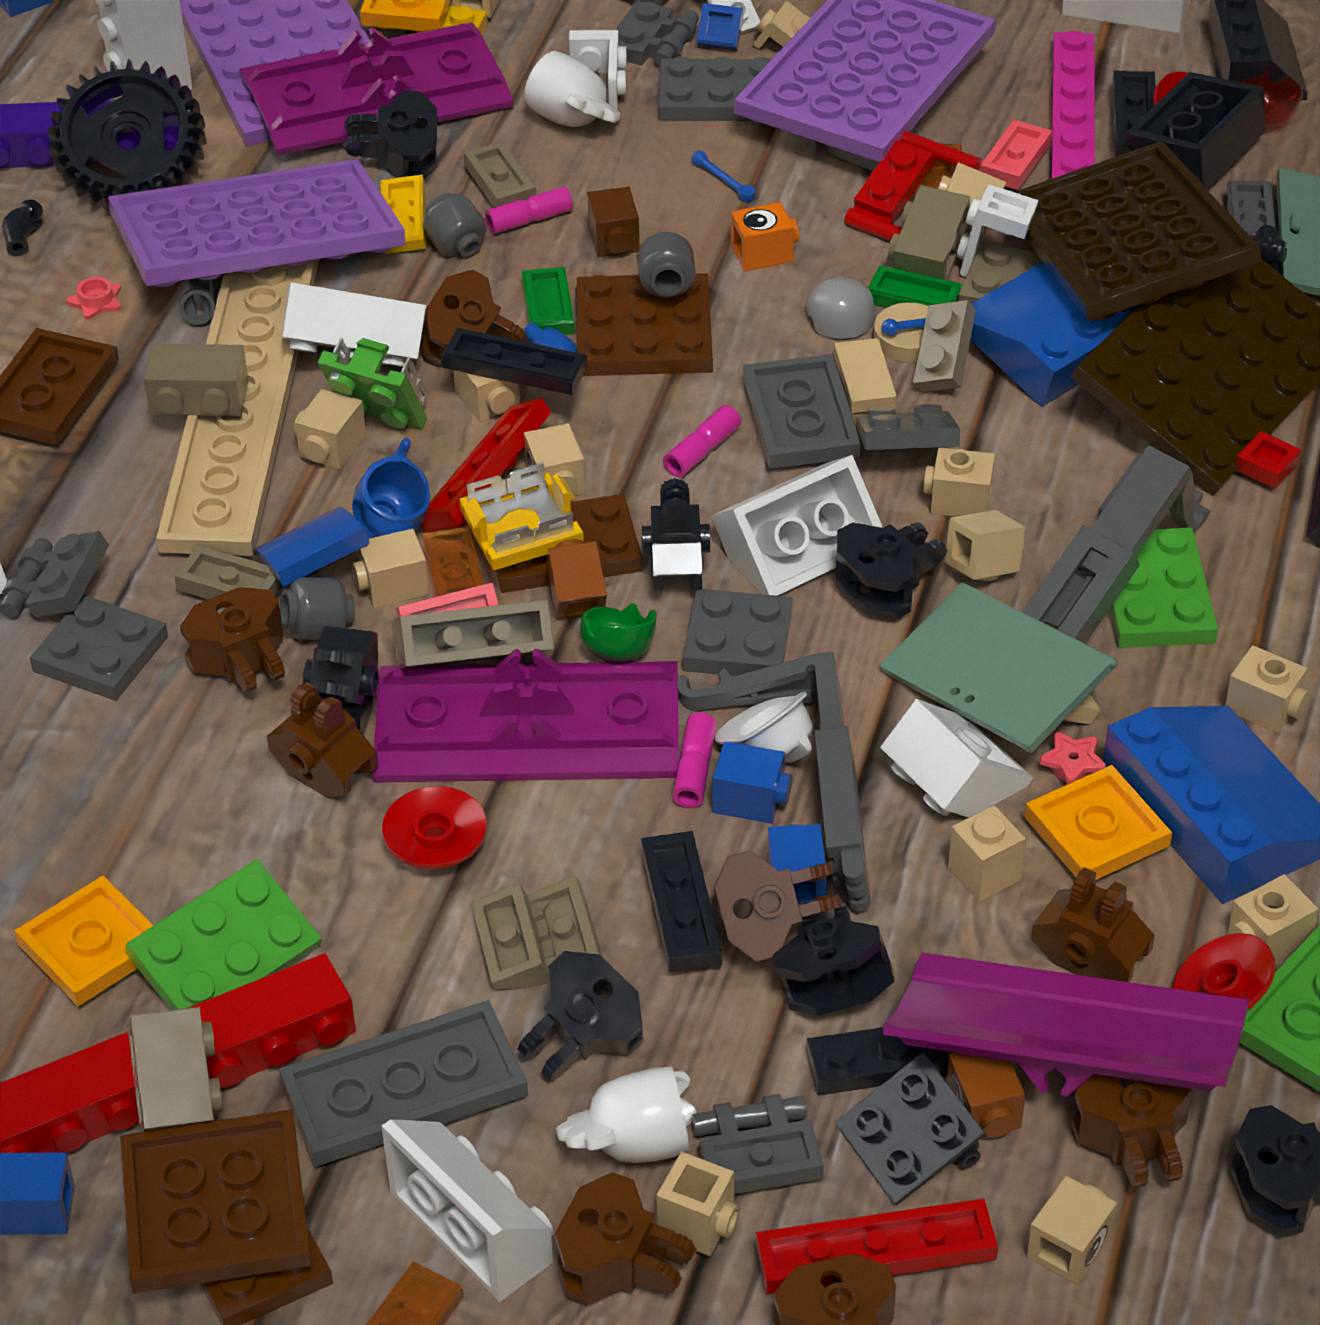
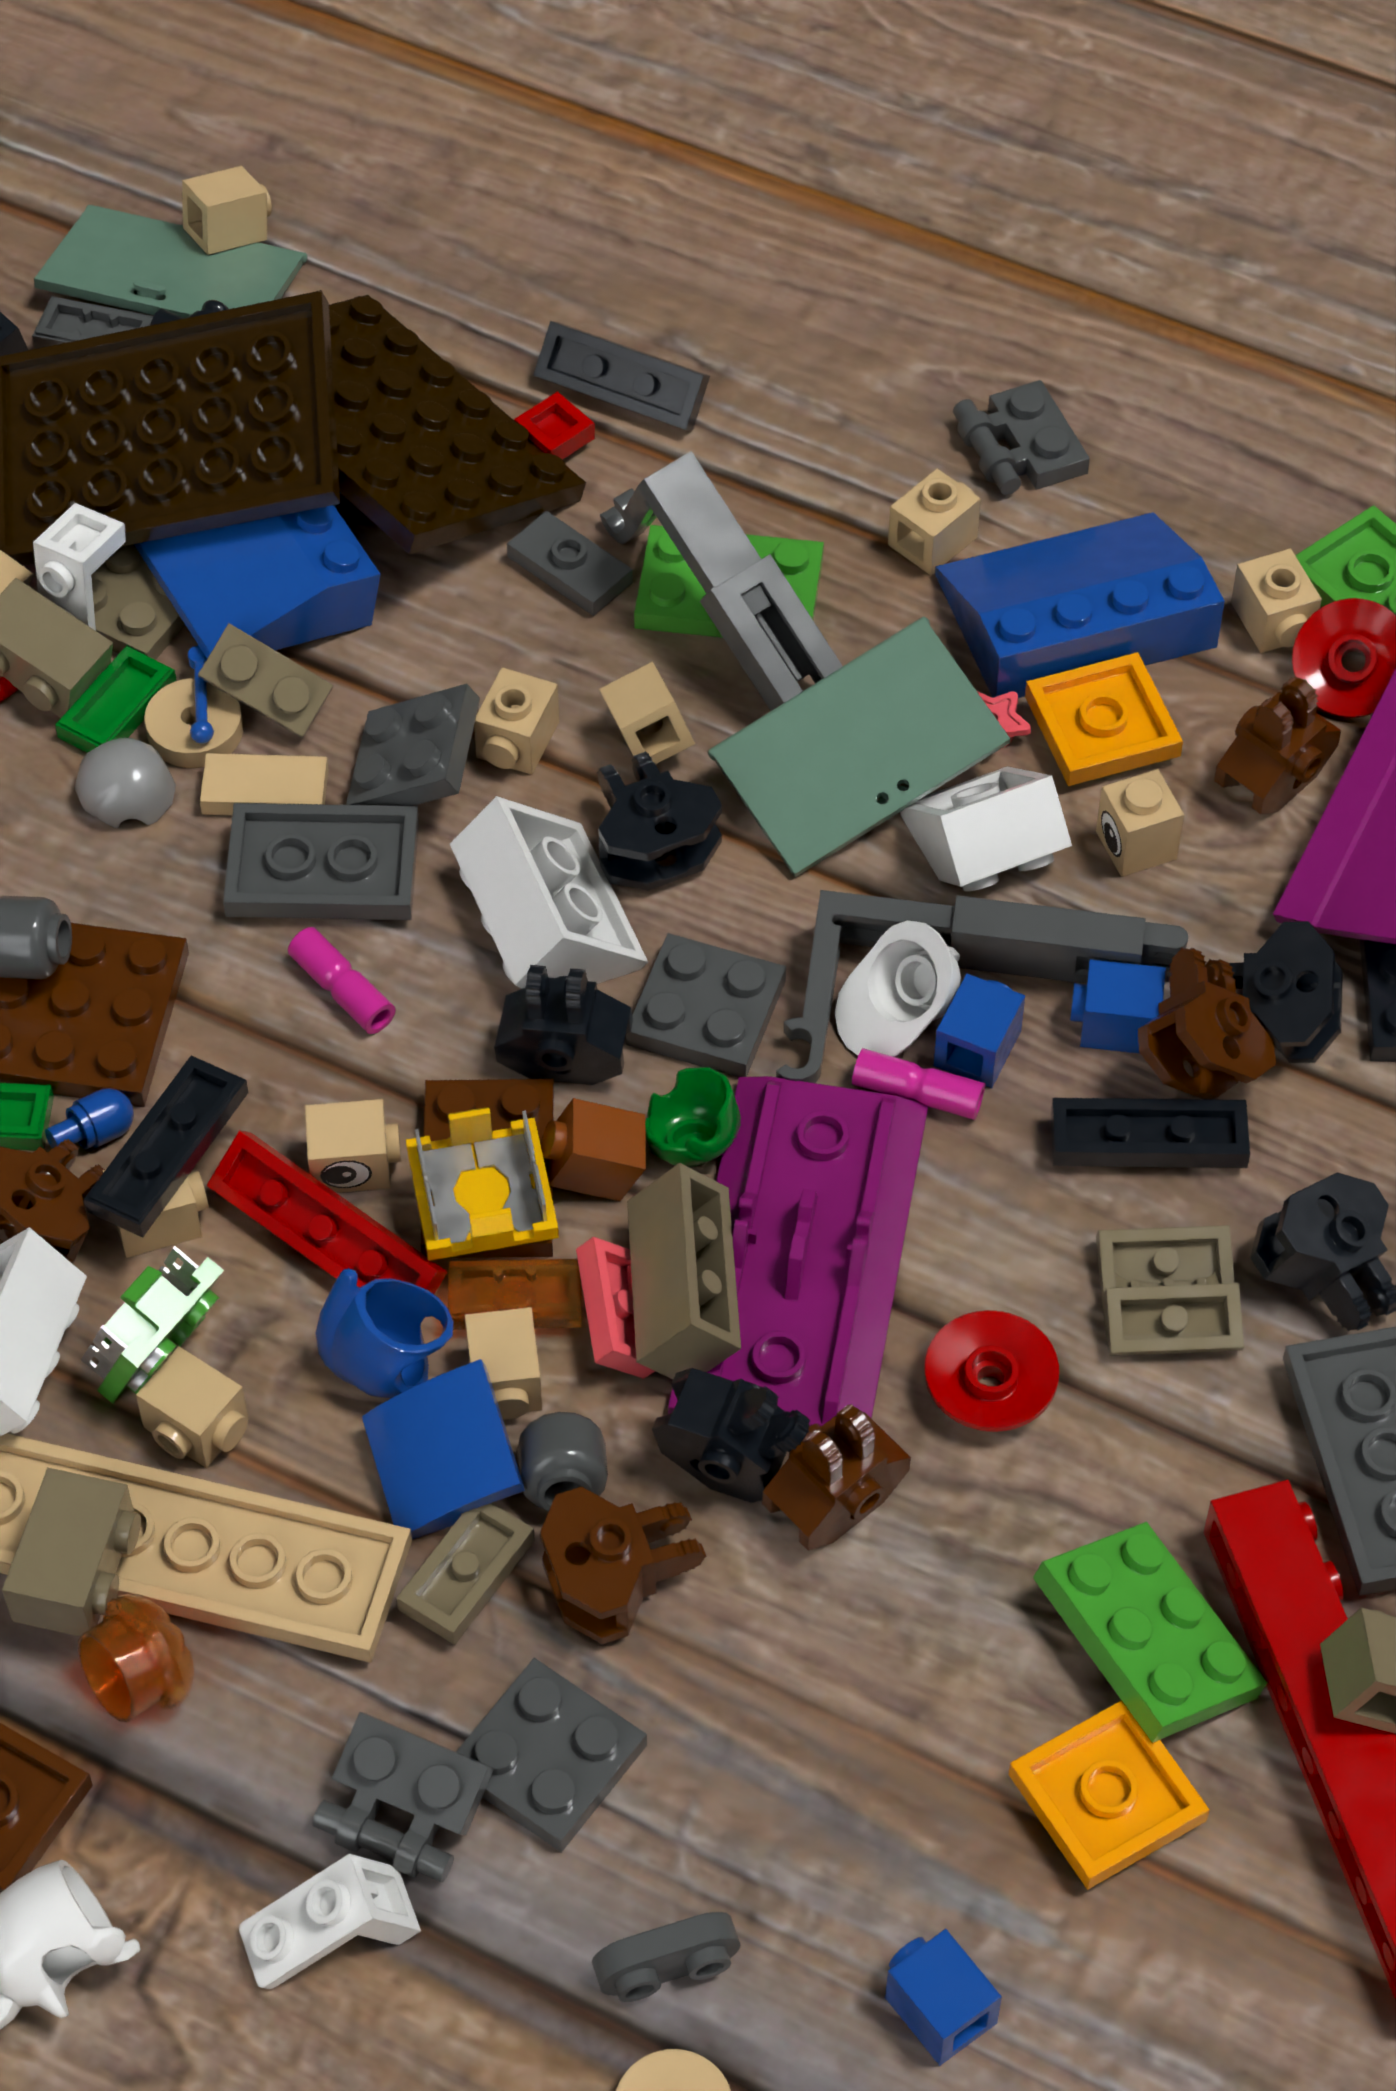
camera: 80 degrees left, 10 degrees up
(134, 432) = (136, 1659): none -> clear orange piece

